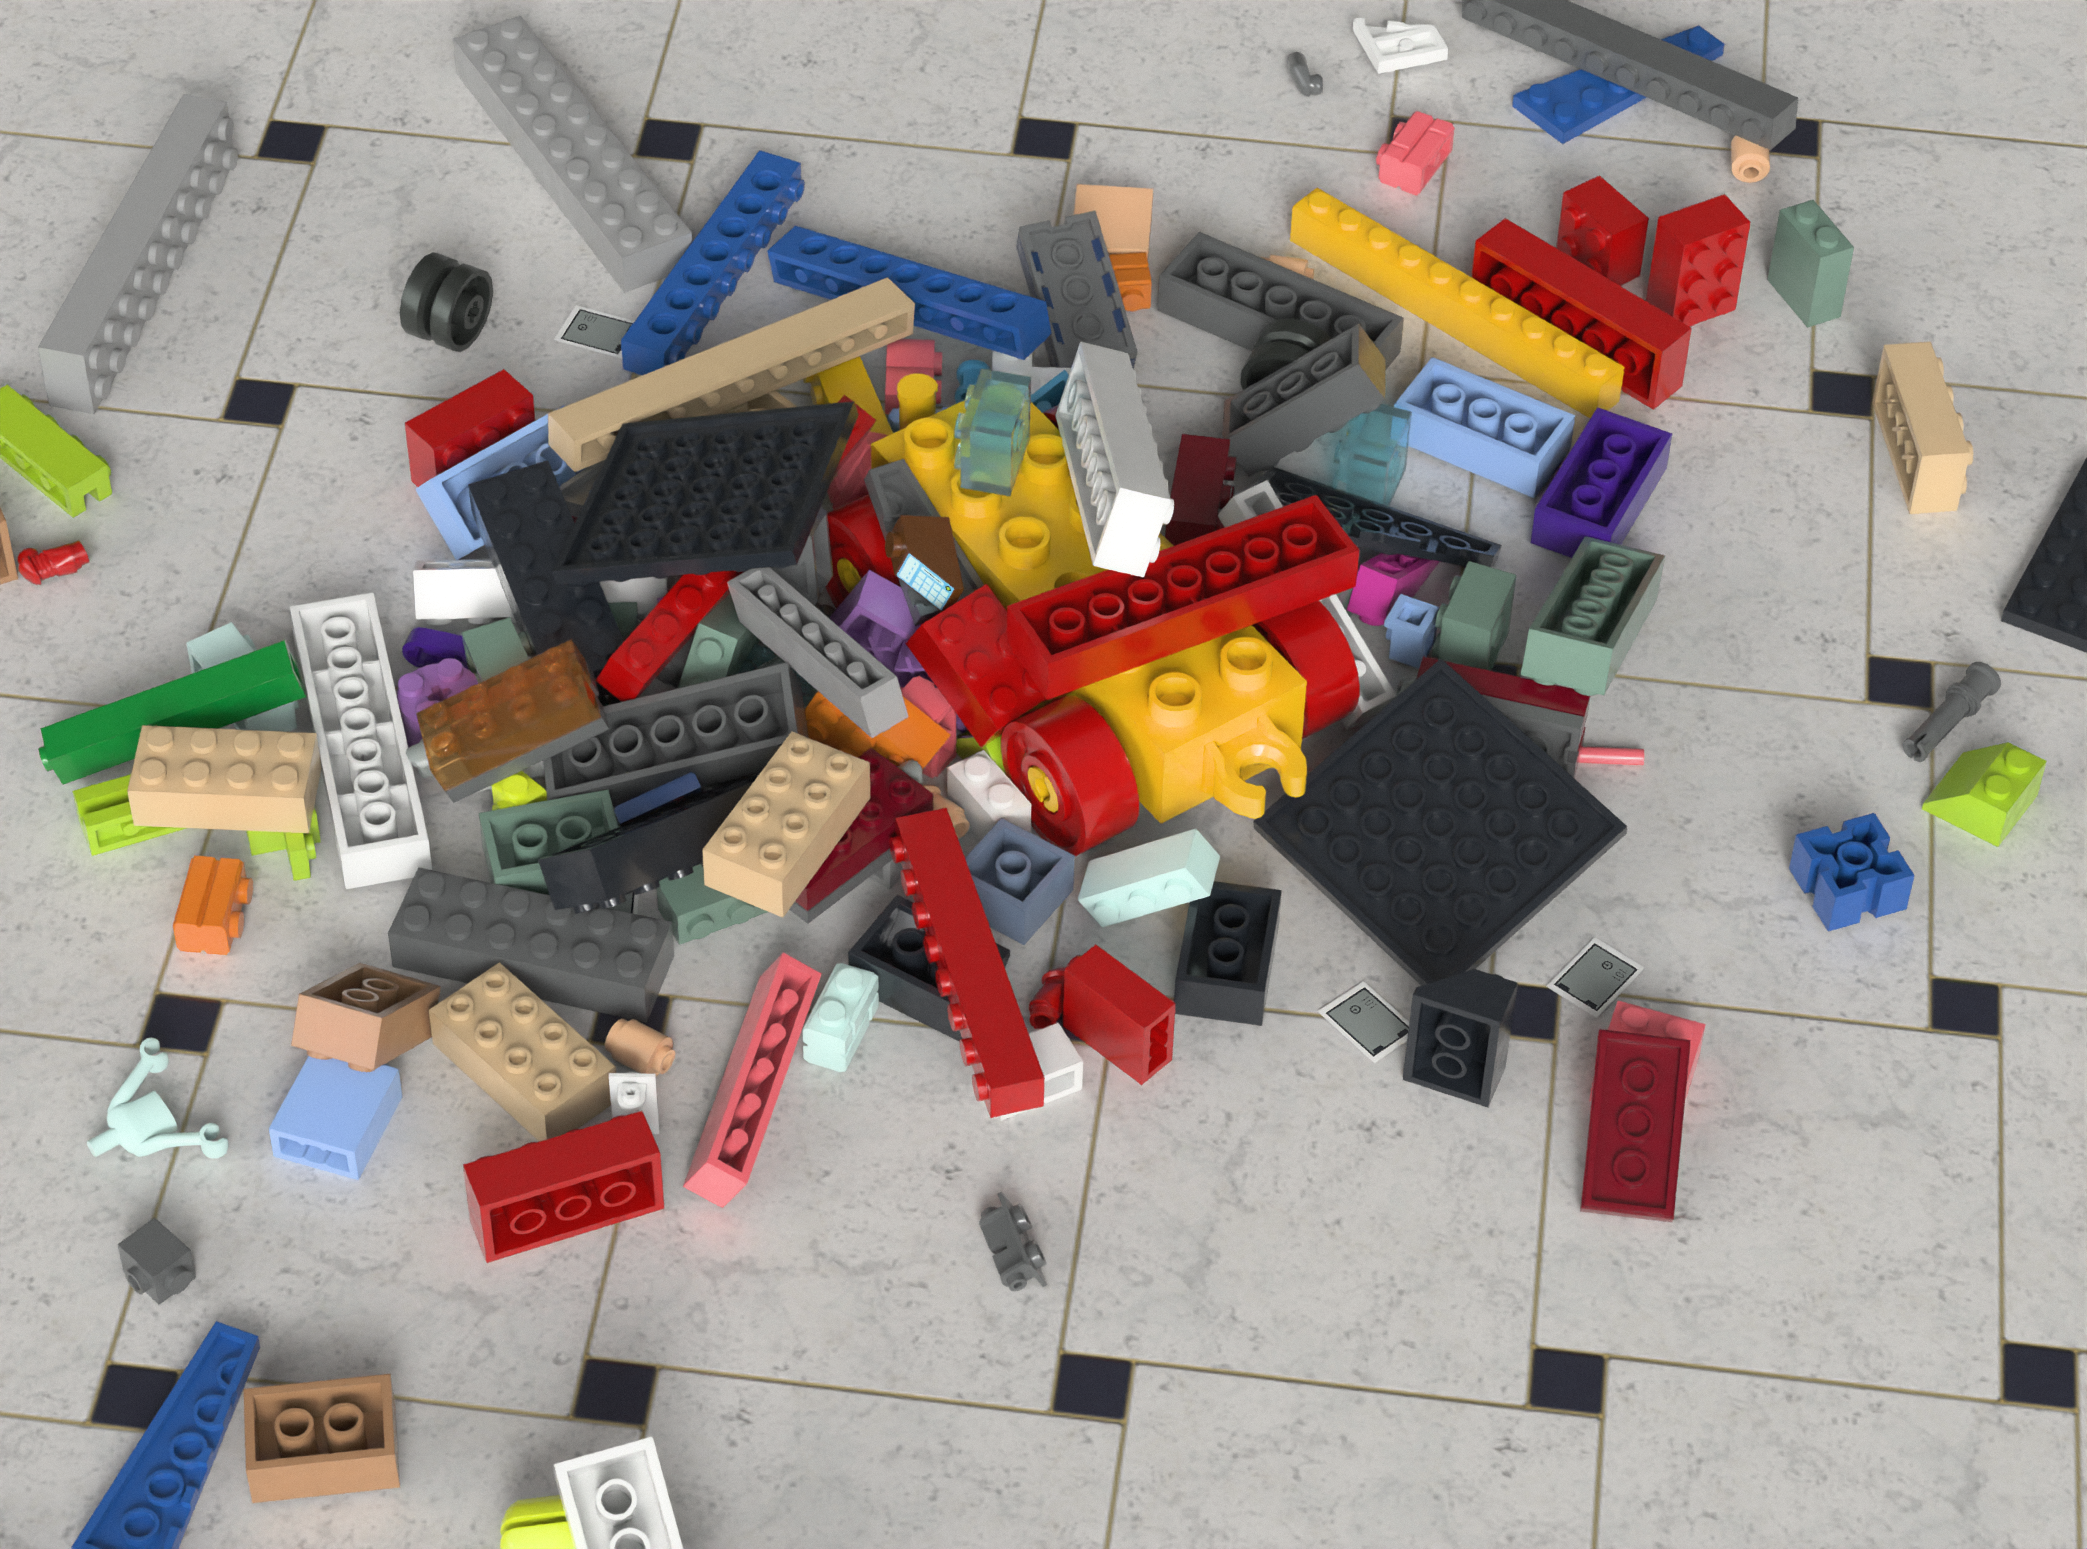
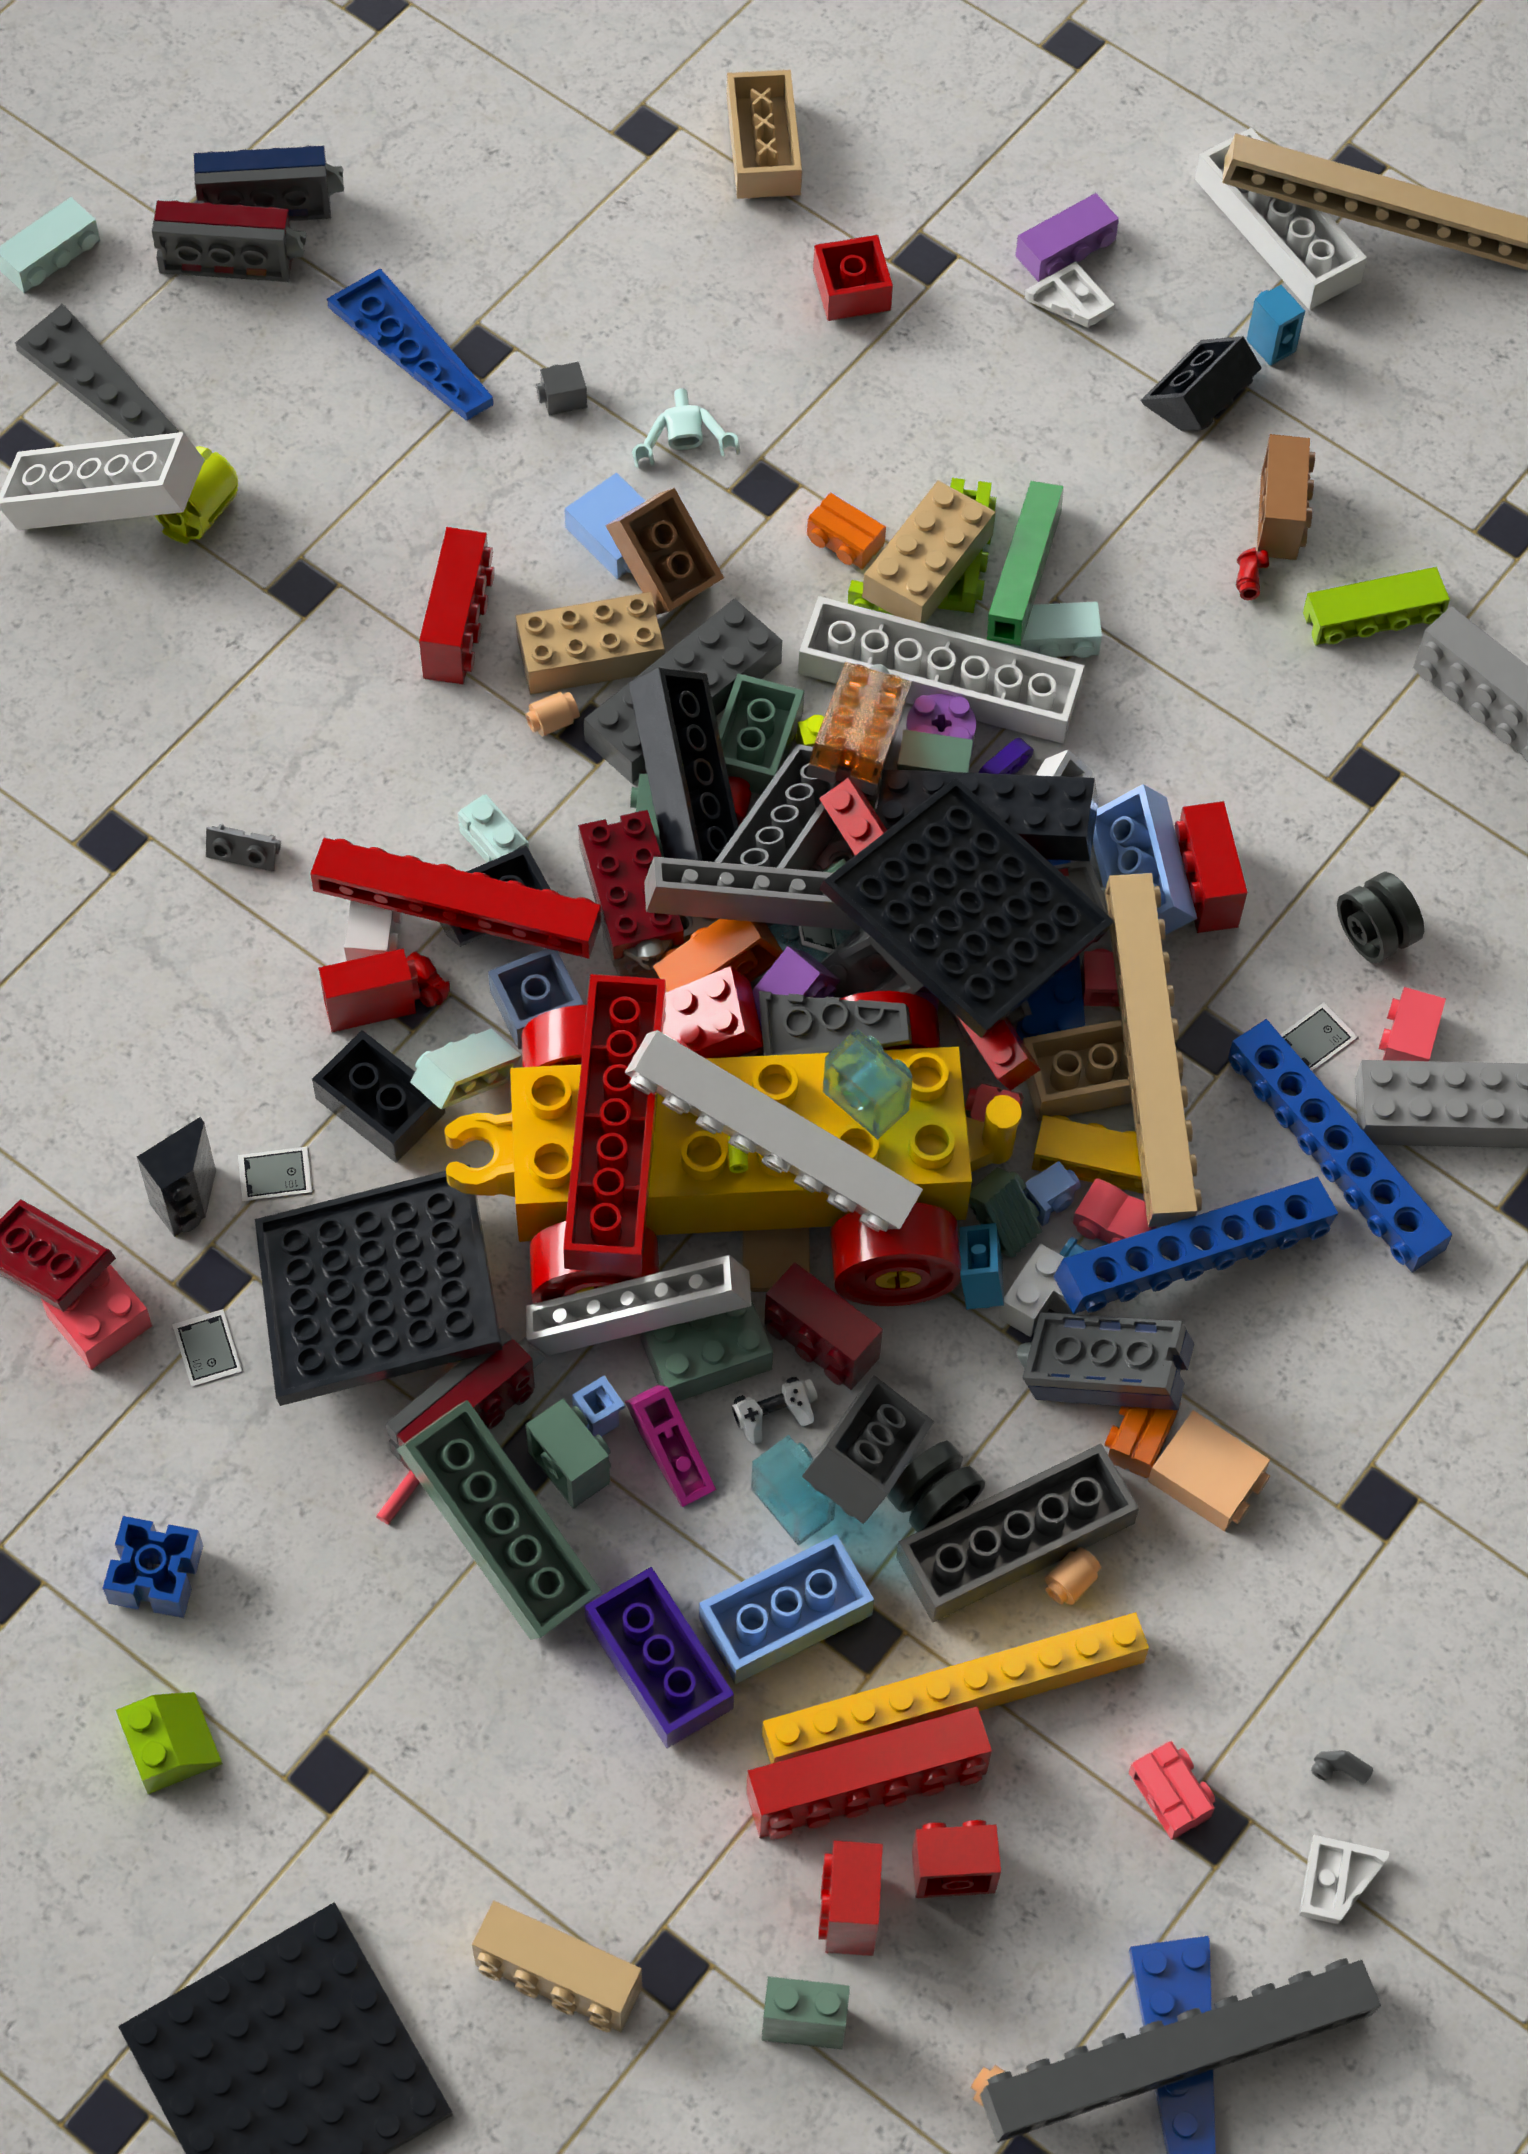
camera: 120 degrees right, 15 degrees up
(321, 1438) = (361, 408): medium nougat brick -> none
(549, 257) = (1413, 1026): none -> coral brick
(635, 1093) = (489, 670): white hinge -> none
(658, 798) = (732, 786): dark blue tile -> none
(752, 1080) = (472, 754): coral brick -> none
(786, 824) = (620, 814): tan brick -> none
(926, 558) = (796, 1003): reddish brown slope -> none
(1384, 527) = (743, 1408): black wing -> none
(1961, 701) = (265, 1792): dark grey pin -> none

